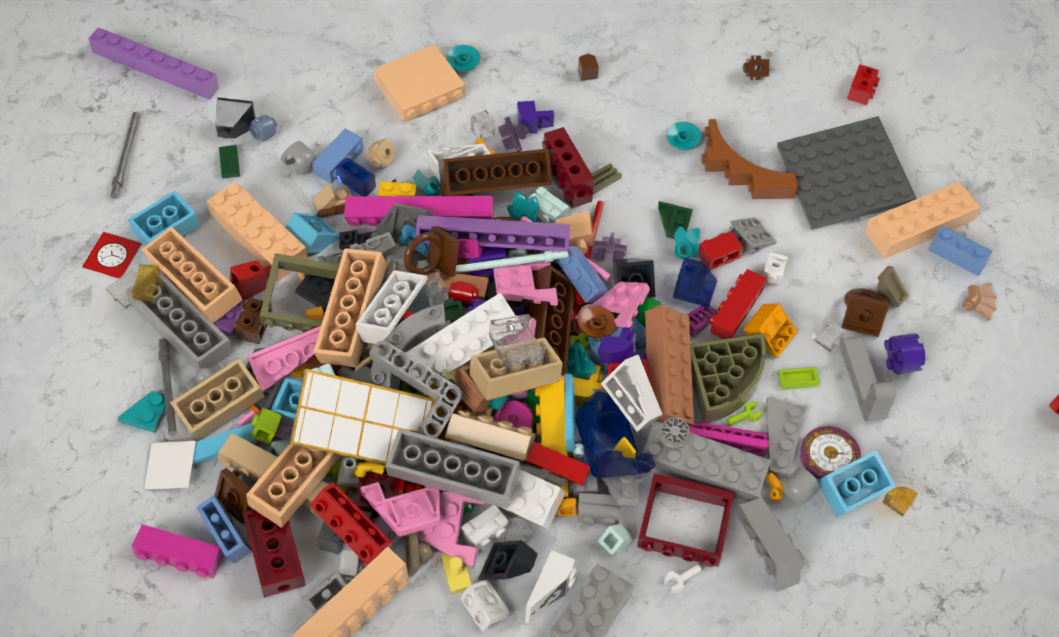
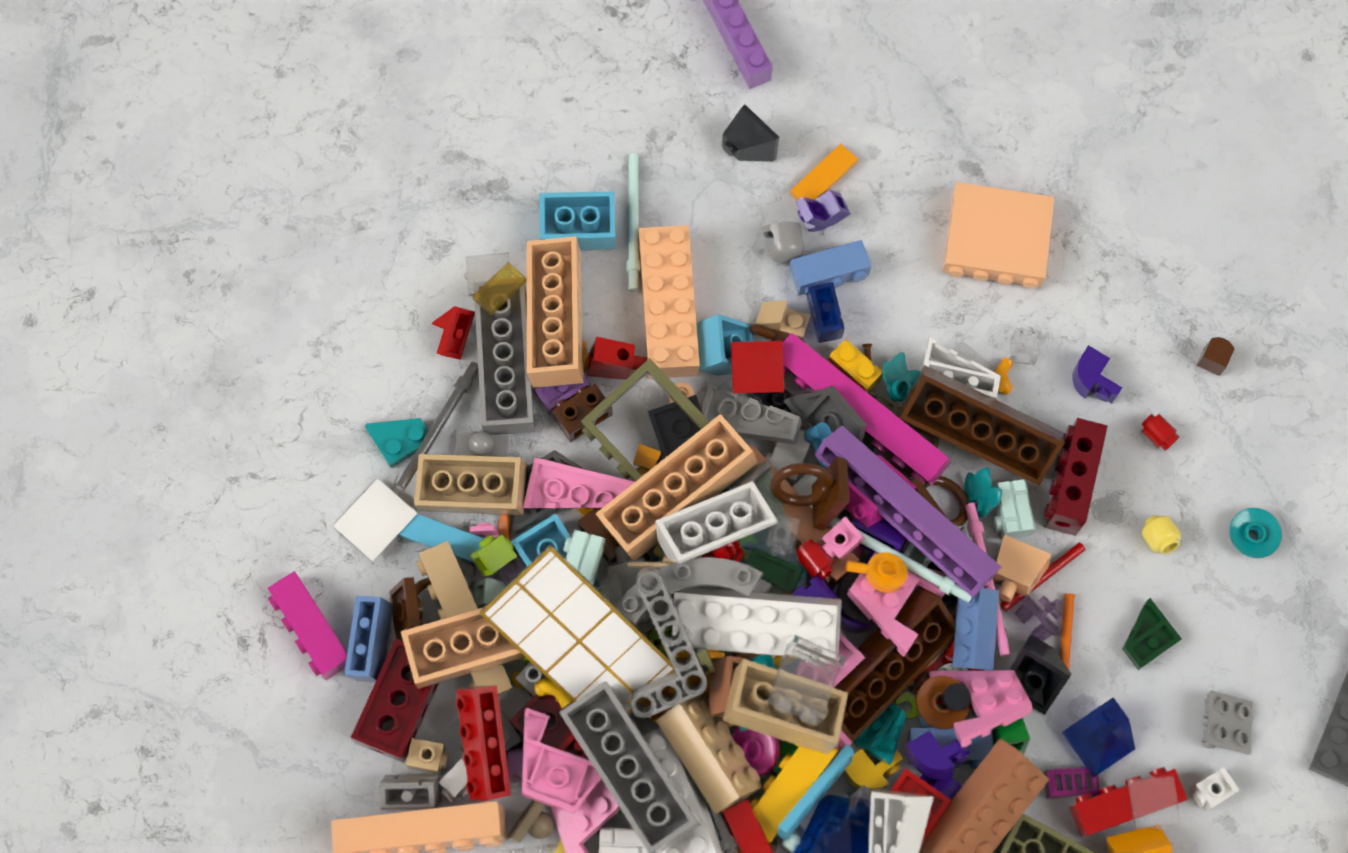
camera: 40 degrees right, 15 degrees up
(111, 255) = (502, 218): red sticker -> none
(118, 180) = (573, 129): flat silver bar -> none
(133, 324) = (456, 328): none -> red slope
(217, 226) = (633, 265): none -> light aqua bar
(229, 161) = (708, 188): dark green tile -> none
(263, 127) = (775, 172): sand blue head -> none
(293, 115) = (825, 174): none -> light orange tile
(309, 130) = (823, 211): none -> brick
(317, 568) = (427, 756): none -> tan brick
(341, 226) = (757, 367): none -> red tile
(381, 153) = (878, 301): tan brick -> none
(463, 58) = (1077, 227): teal dish -> none
(471, 262) = (852, 539): none -> bright pink brick
(507, 270) = (883, 572): none -> light orange piece
(515, 133) = (1055, 383): clear purple hips -> none
(591, 121) = (1159, 431): none -> red brick
(602, 313) = (956, 697): none -> black tile
(603, 173) = (1131, 516): olive tile -> none
(631, 250) = (1067, 625): none -> orange bar
(636, 168) = (1161, 534): none -> light yellow head
(687, 240) = (1142, 677): teal plate -> none
(720, 250) = (1167, 717): red brick -> none
(739, 171) = (1297, 664): dark orange arch -> none
(751, 291) = (1154, 802): none -> clear piece

